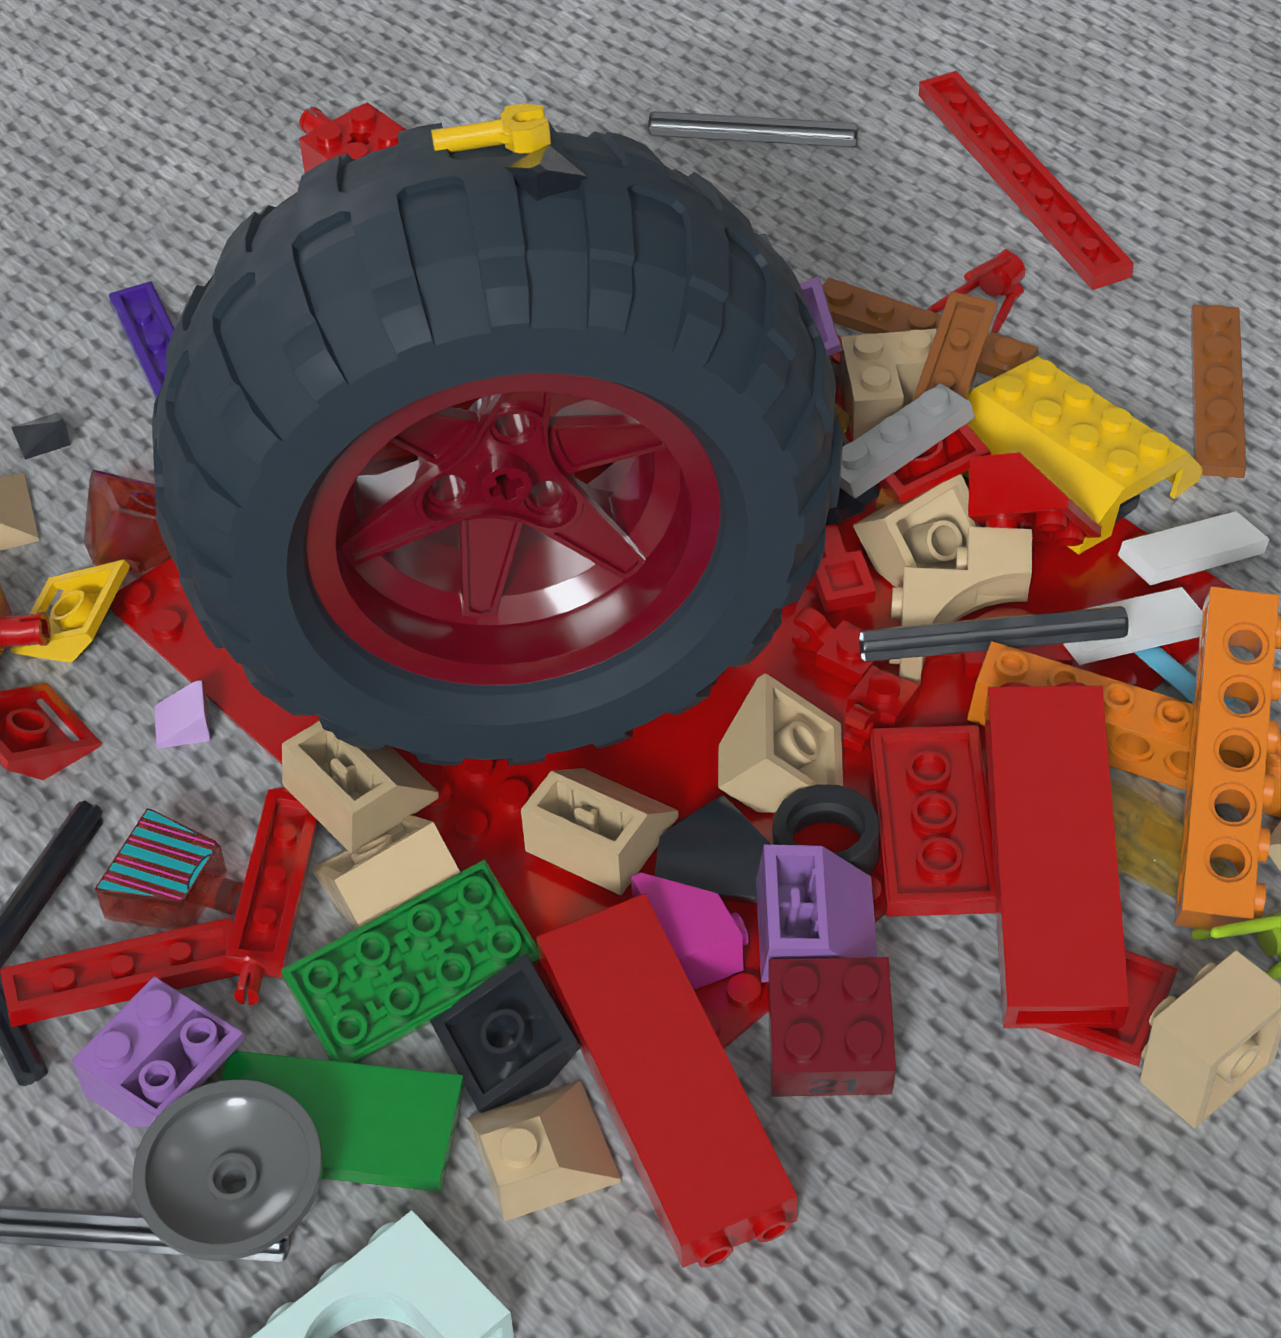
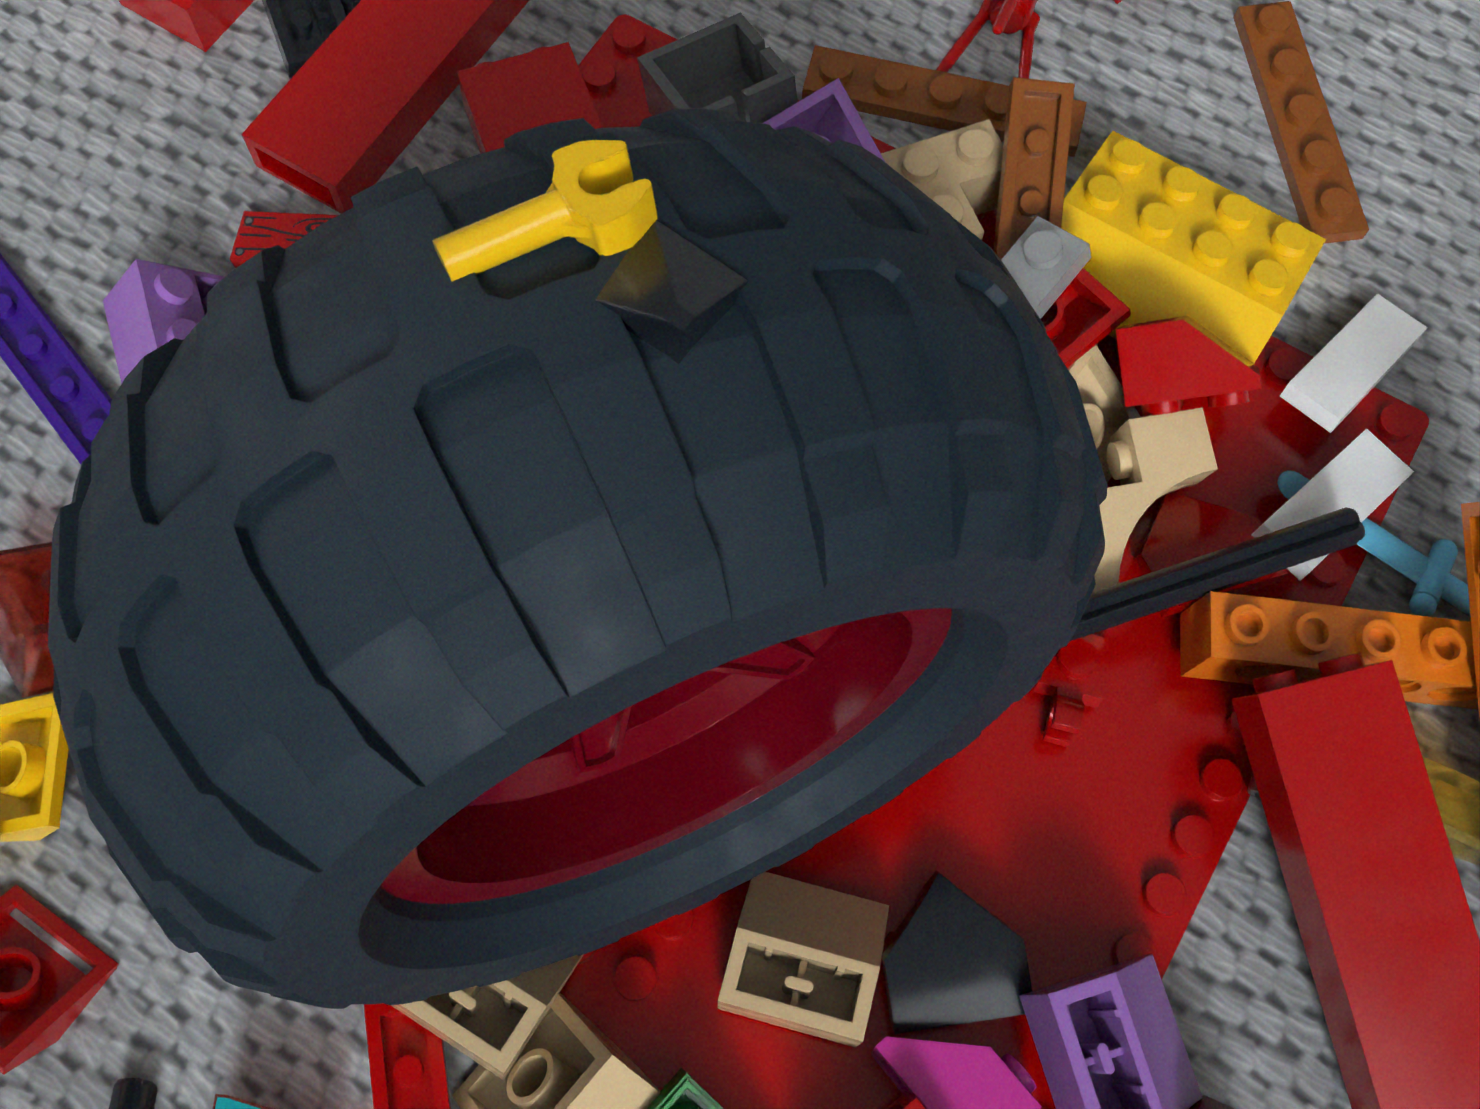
camera: 20 degrees left, 20 degrees up
(778, 747) = (993, 798): tan slope -> none
(831, 805) = (1121, 872): black tyre -> none
(933, 820) = (1189, 838): red tile -> none

